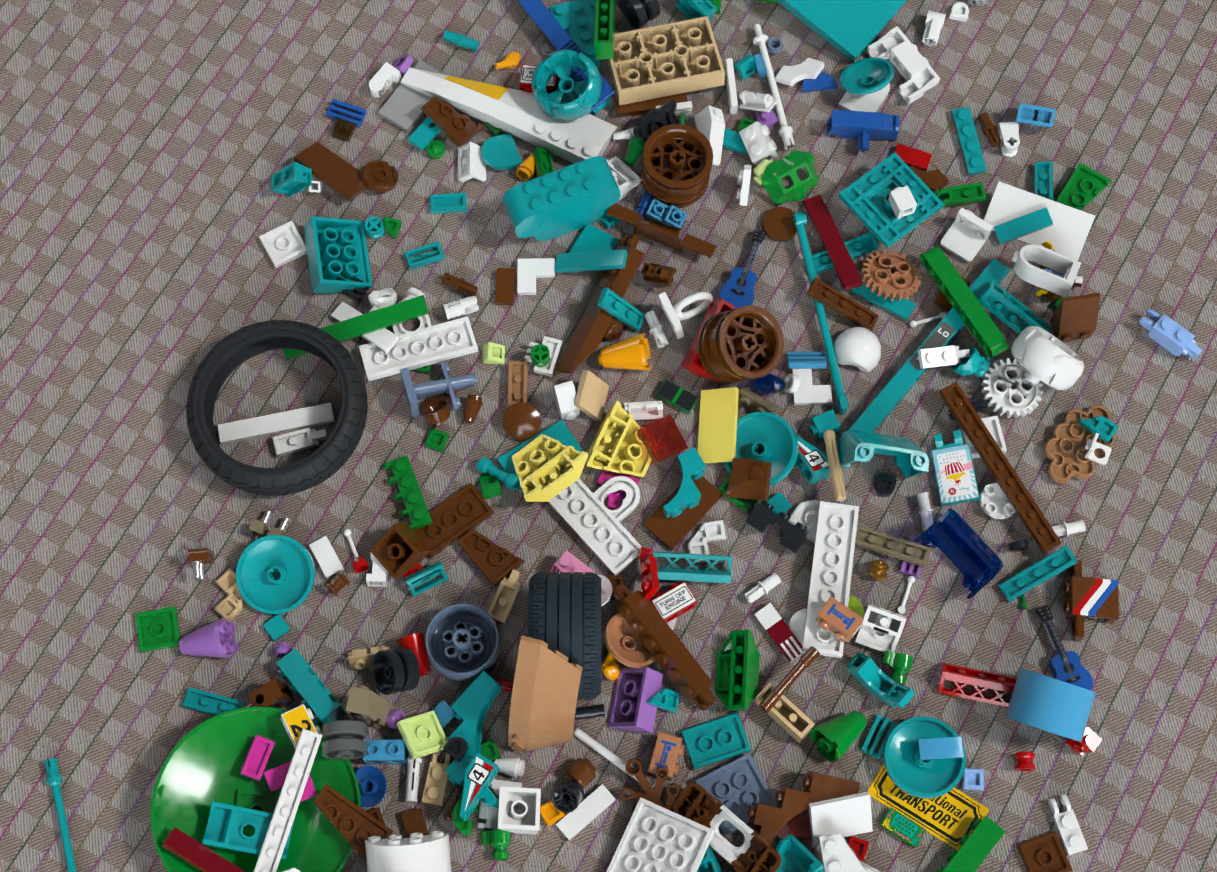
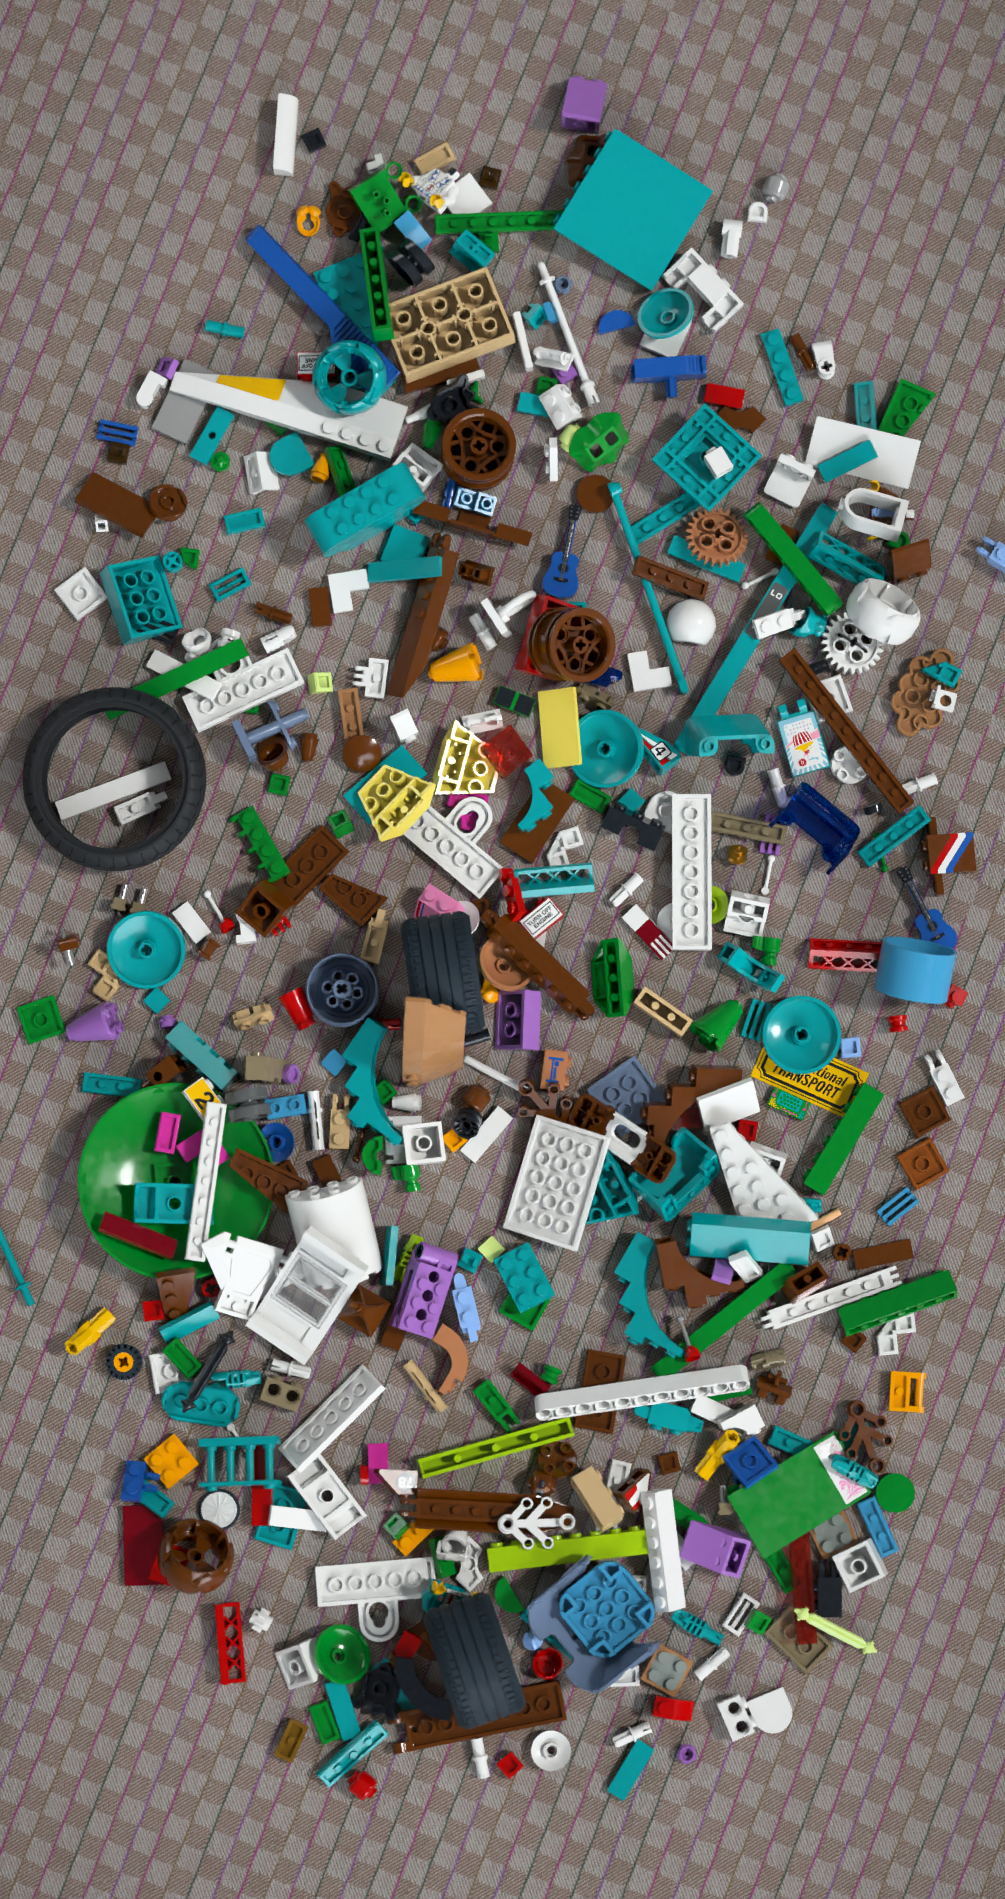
camera: 10 degrees left, 15 degrees up
(291, 179) = (77, 524): teal hinge -> none
(395, 670) = (282, 1028): black wheel -> none
(422, 734) = (320, 1085): yellowish green tile -> none
(424, 576) = (293, 928): teal tile -> none
(452, 123) = (234, 432): reddish brown wing -> none
(457, 748) = (355, 1094): black tile -> none
(477, 779) = (380, 1123): teal slope -> none
(485, 465) = (361, 817): teal piece -> none
(510, 61) = (282, 345): light orange animal -> none
(539, 351) = (369, 678): green wheel -> none
(591, 395) = (428, 716): tan tile -> none
(621, 309) = (444, 620): teal tile -> none
(665, 699) = (546, 1016): teal tile -> none
(712, 125) = (509, 400): white slope -> none
(715, 741) = (600, 1047): teal tile -> none
(749, 479) = (599, 782): reddish brown plate -> none
(774, 696) = (675, 962): reddish brown piece -> none
(792, 383) = (629, 671): white tile -> none
(806, 70) = (601, 310): white tile -> none
(806, 360) = (639, 642): dark azure tile -> none
(824, 422) = (667, 711): teal brick -> none
(832, 242) = (652, 508): dark red tile -> none
(834, 465) = (682, 756): tan axle -> none
(839, 620) = (704, 916): nougat brick -> none
(941, 748) = (815, 1025): dark azure slope -> none
(962, 194) = (780, 433): green hinge -> none
(1035, 115) = (849, 331): dark azure brick -> none

